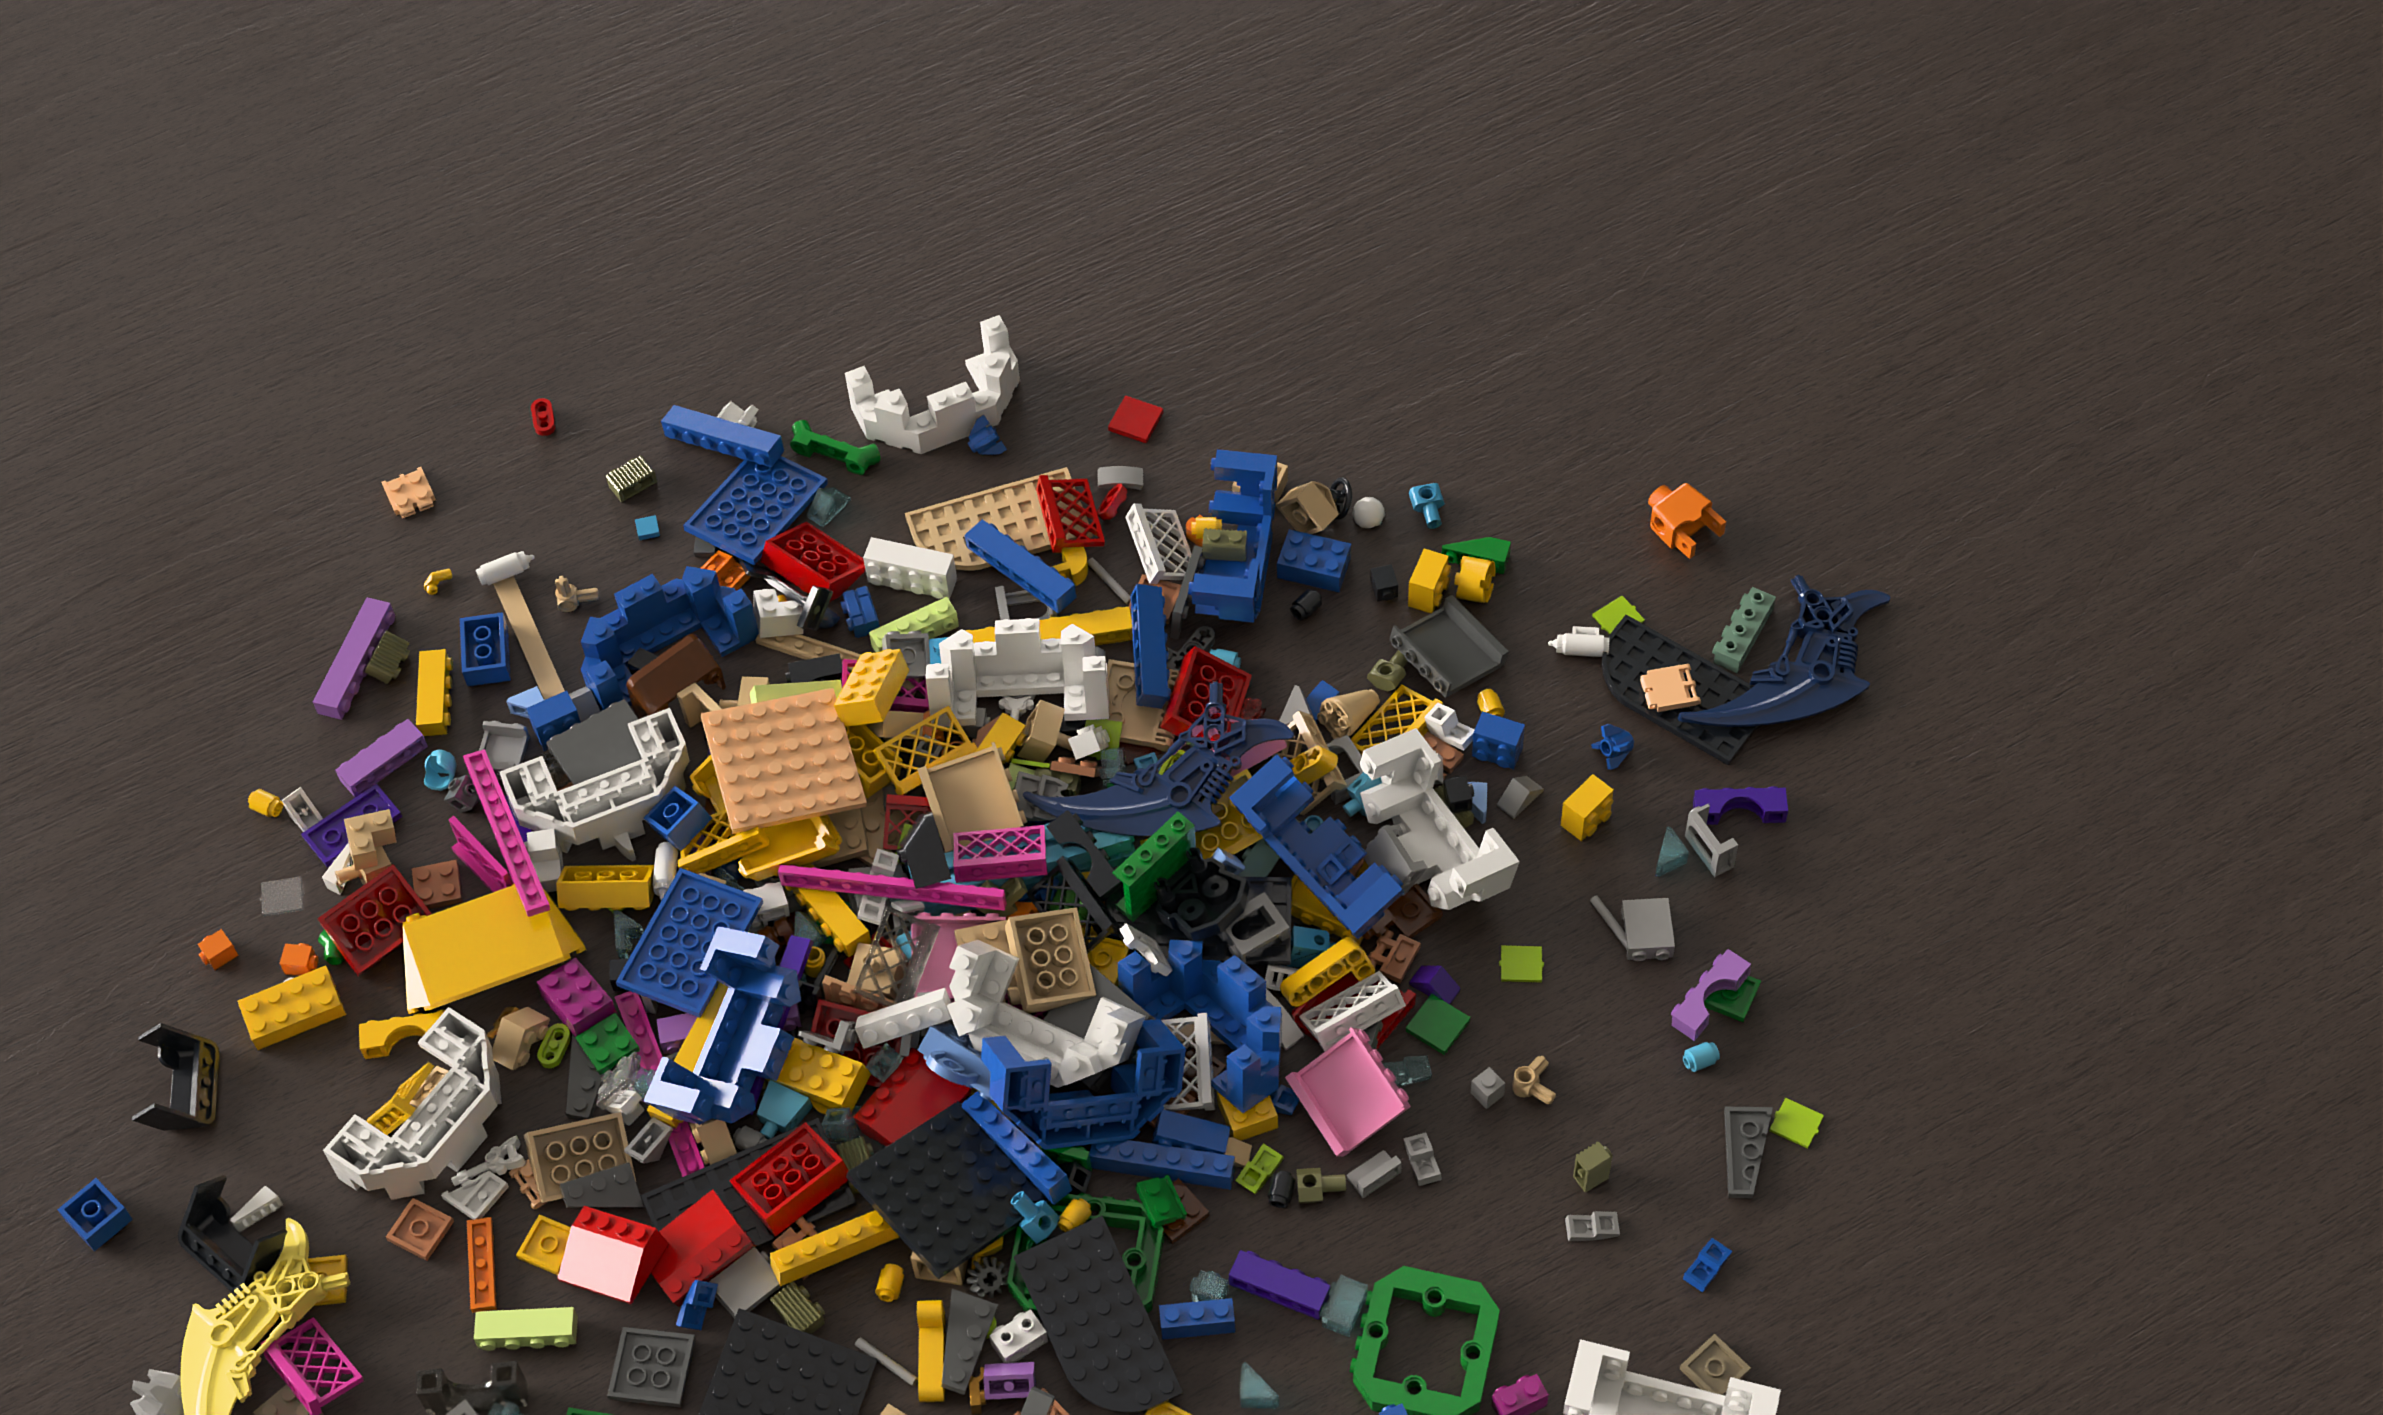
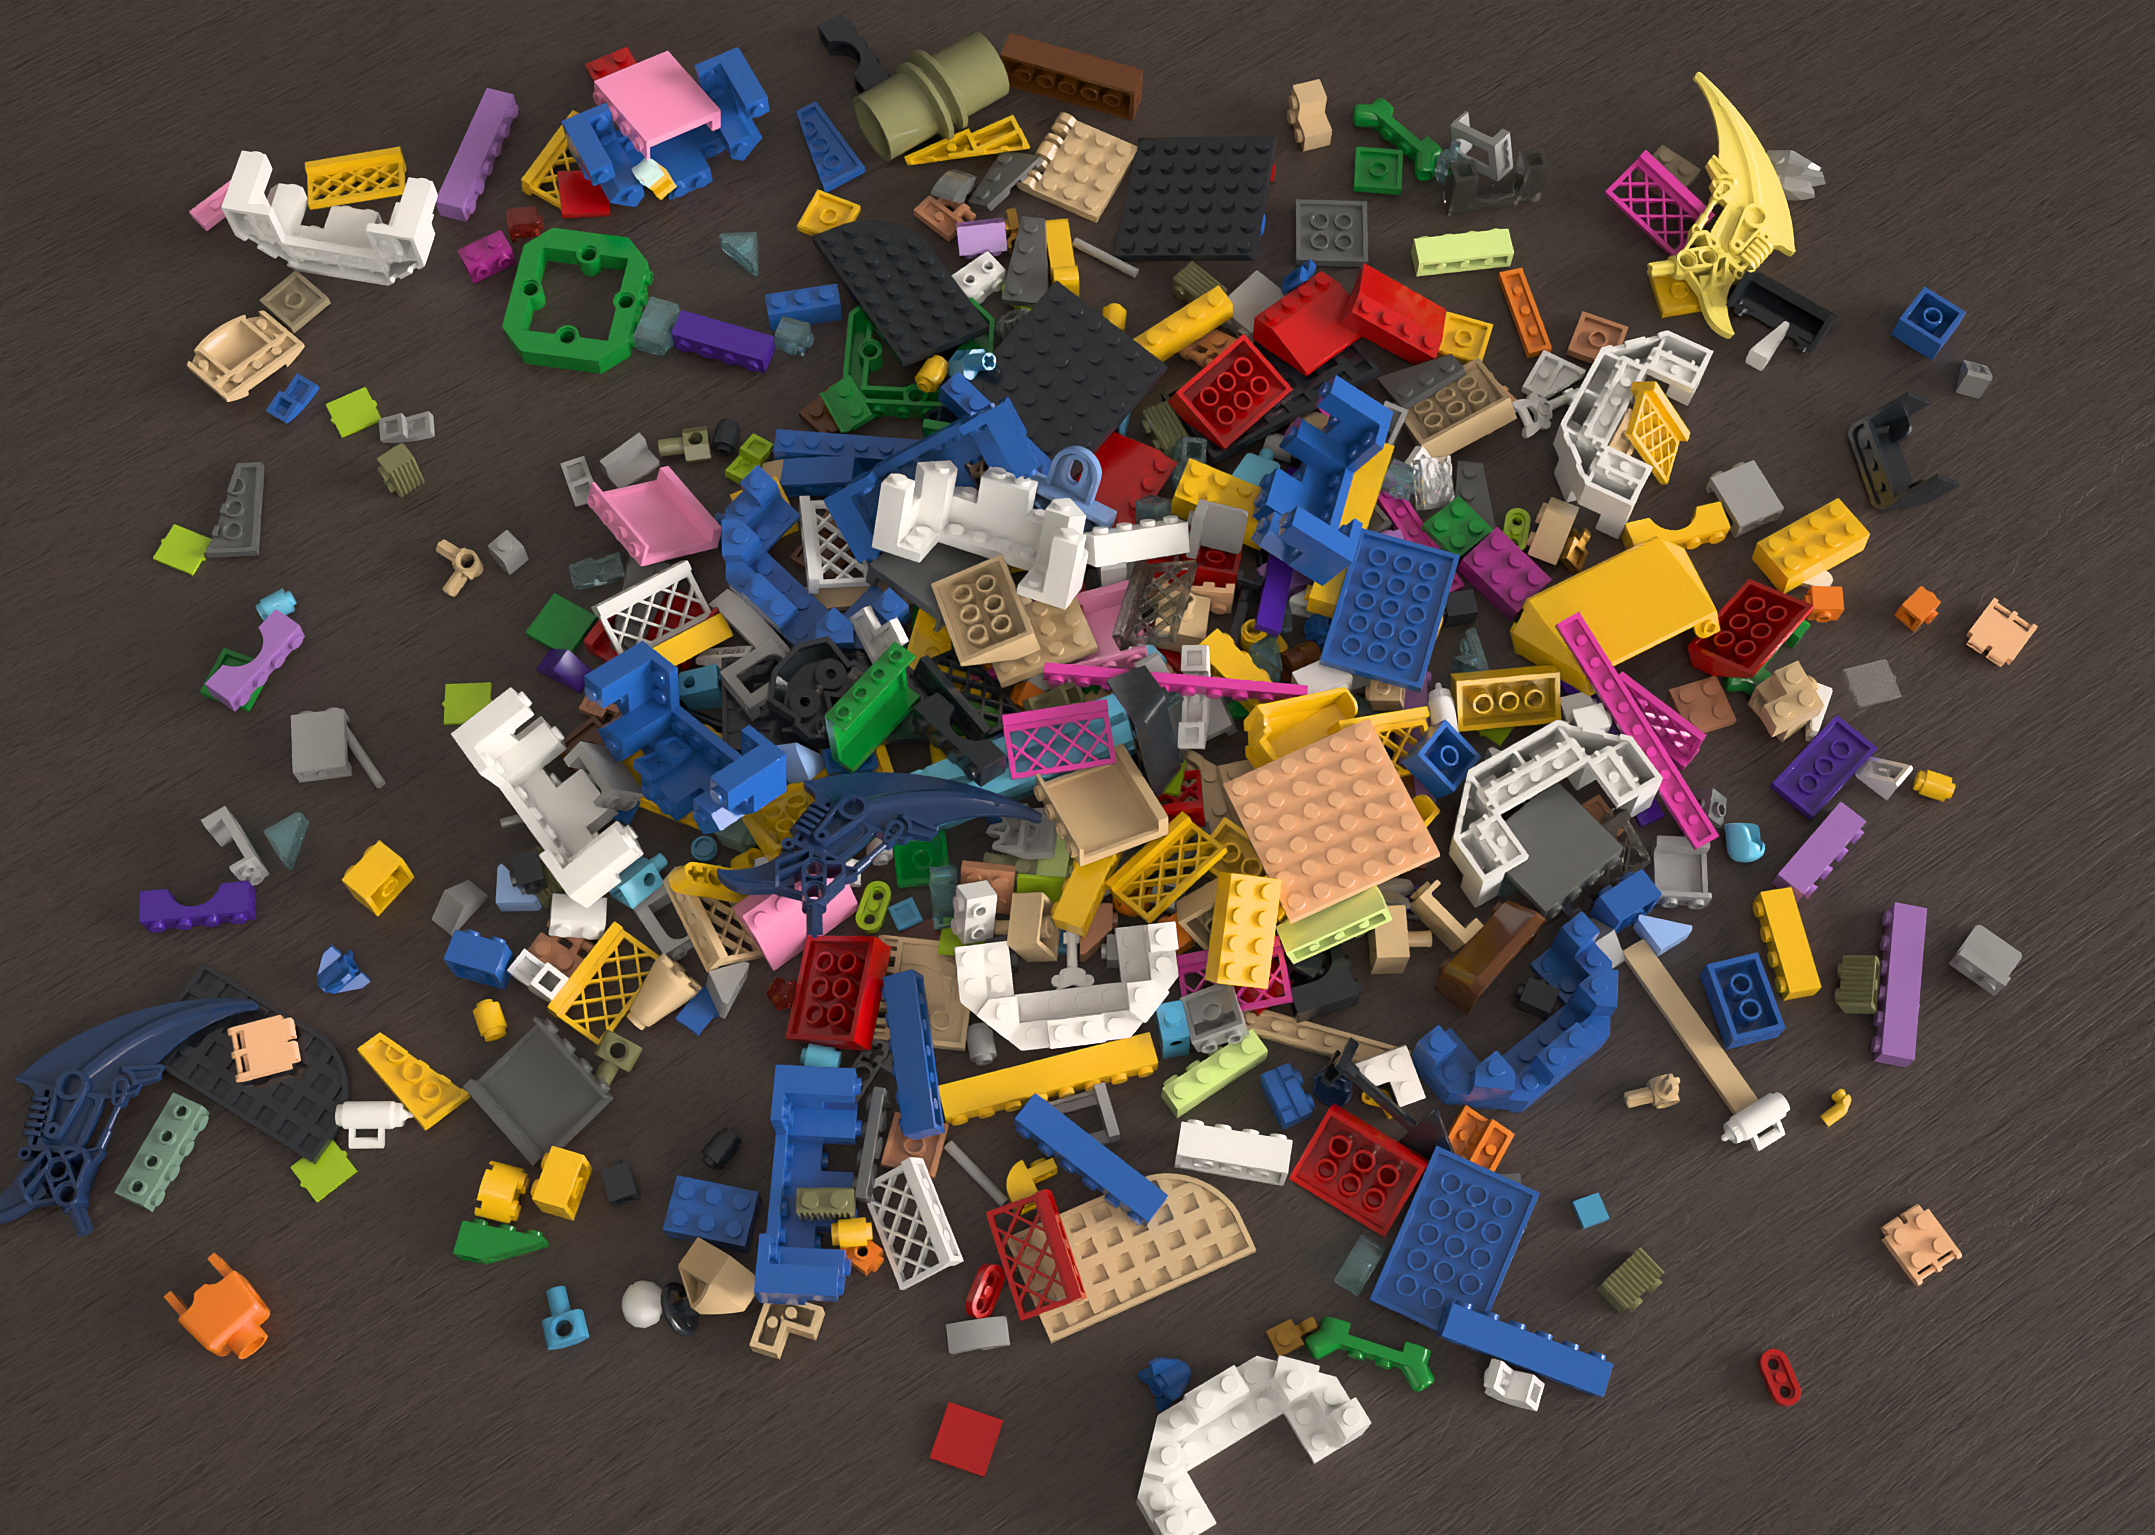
camera: 170 degrees right, 10 degrees up
(72, 1163) = (1973, 379): none -> light grey slope
(154, 924) = (1999, 634): none -> light nougat plate
(279, 671) = (1986, 959): none -> light grey bracket
(334, 1060) = (1745, 497): none -> light grey panel
(891, 464) = (1287, 1337): none -> pearl gold plate
(1547, 664) = (412, 1081): none -> yellow wing
(1646, 1250) = (353, 412): none -> lime piece
(1760, 1307) = (243, 354): none -> tan slope

